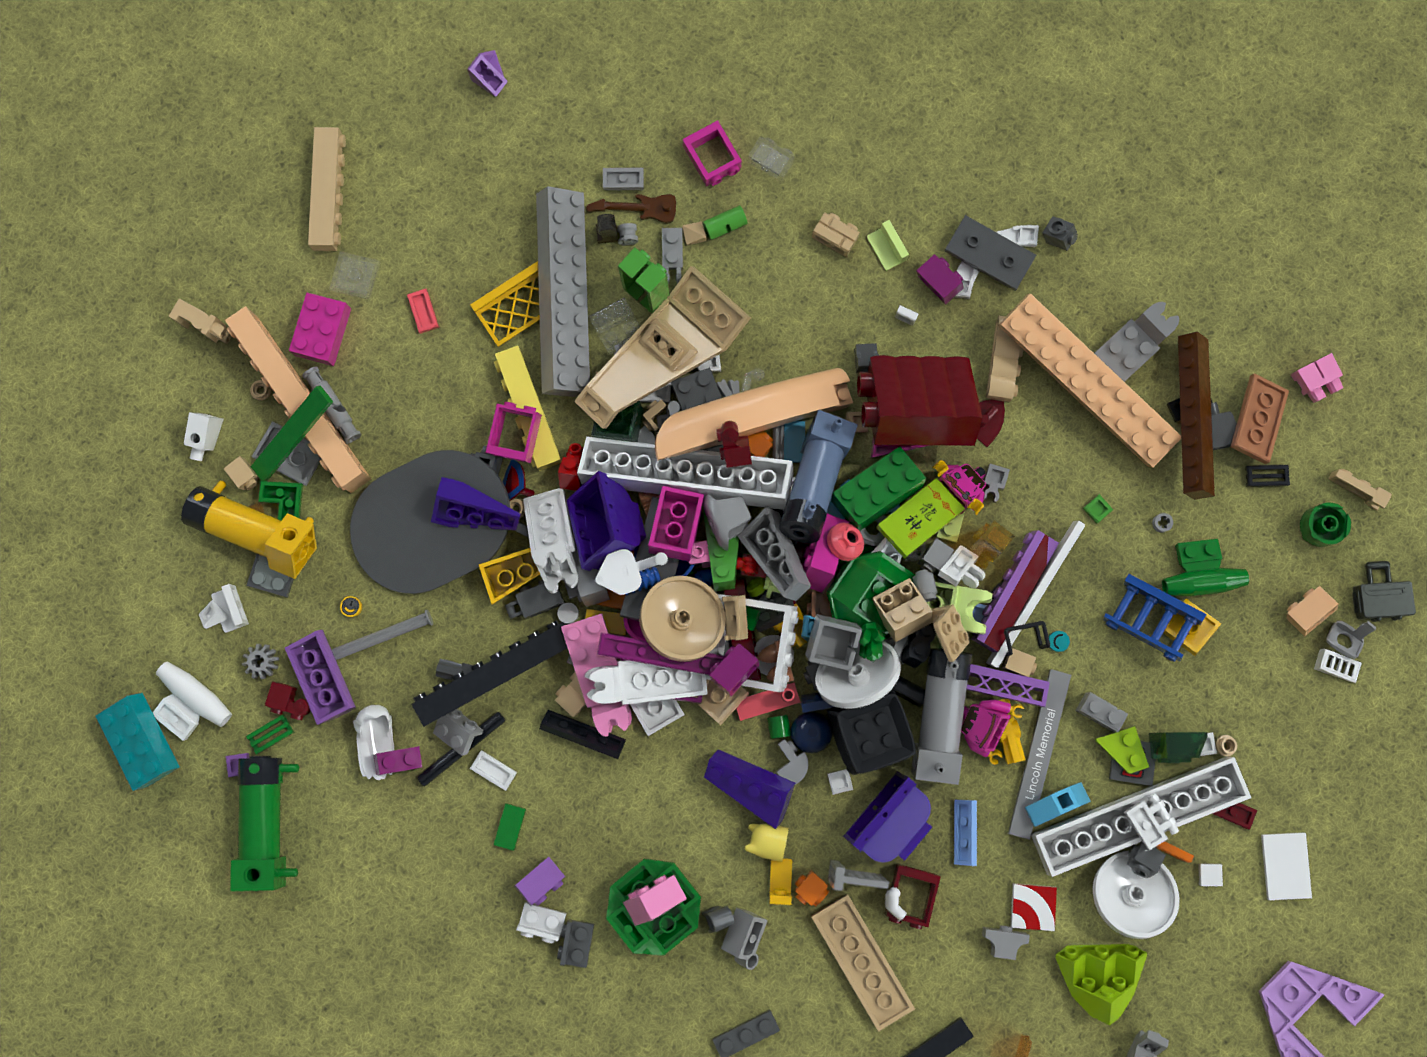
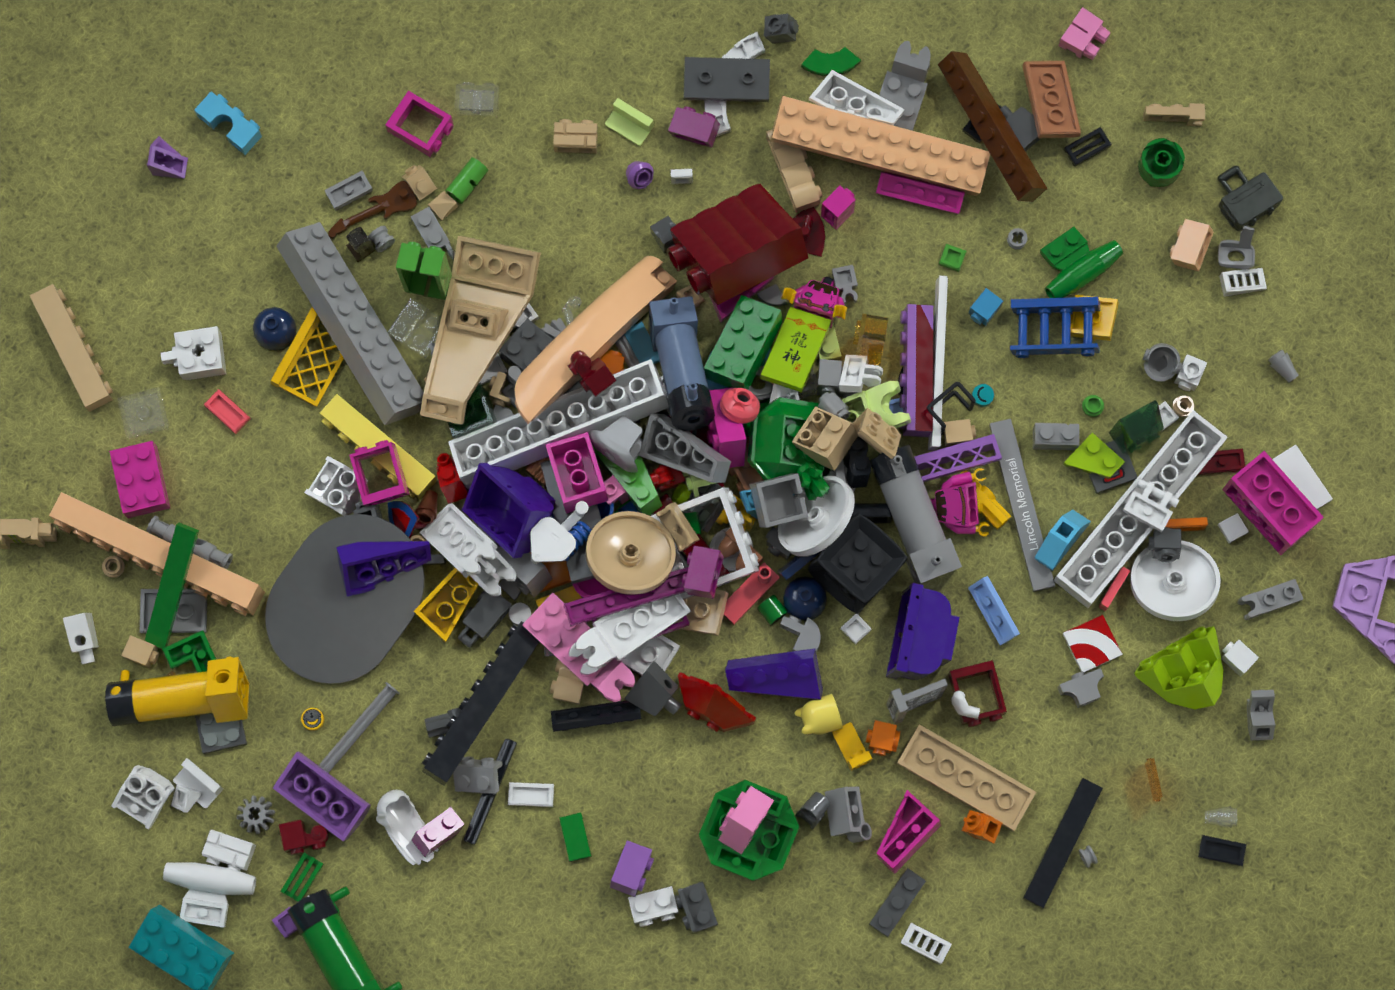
camera: 30 degrees left, 5 degrees down
(180, 594) = (140, 795): none -> white slope
(222, 679) = (228, 850): none -> white brick
(420, 239) = (186, 350): none -> white hinge
(474, 419) = (336, 487): none -> white slope
(499, 262) = (274, 328): none -> dark blue cylinder
(539, 483) = (427, 507): none -> copper cone
(550, 53) = (216, 110): none -> medium azure arch
(641, 743) = (654, 691): none -> dark grey torso
(680, 782) = (712, 705): none -> red wedge
(685, 202) = (419, 181): none -> tan bracket
(787, 982) = (907, 833): none -> dark pink wedge
(852, 1013) = (977, 825): none -> orange brick
(871, 295) = (639, 174): none -> medium lavender cone
(926, 458) = (772, 296): none -> light grey tile
(1024, 413) = (838, 207): none -> dark pink brick
(1076, 873) = (1114, 588): none -> coral tile
(1085, 286) = (824, 63): none -> green tile
(1087, 325) = (849, 97): none -> white wedge
(1101, 438) = (920, 192): none -> dark pink plate
(1102, 567) = (985, 307): none -> dark azure brick
(1148, 702) = (1093, 405): none -> bright green plate
(1154, 991) = (1239, 657): none -> white brick
(1210, 955) = (1271, 599): none -> light grey plate
(1229, 699) = (1162, 362): none -> light grey cap
(1248, 721) = (1190, 373): none -> white brick
(1259, 877) = (1272, 503): none -> dark pink brick
(1333, 758) = (1282, 364): none -> light grey cone

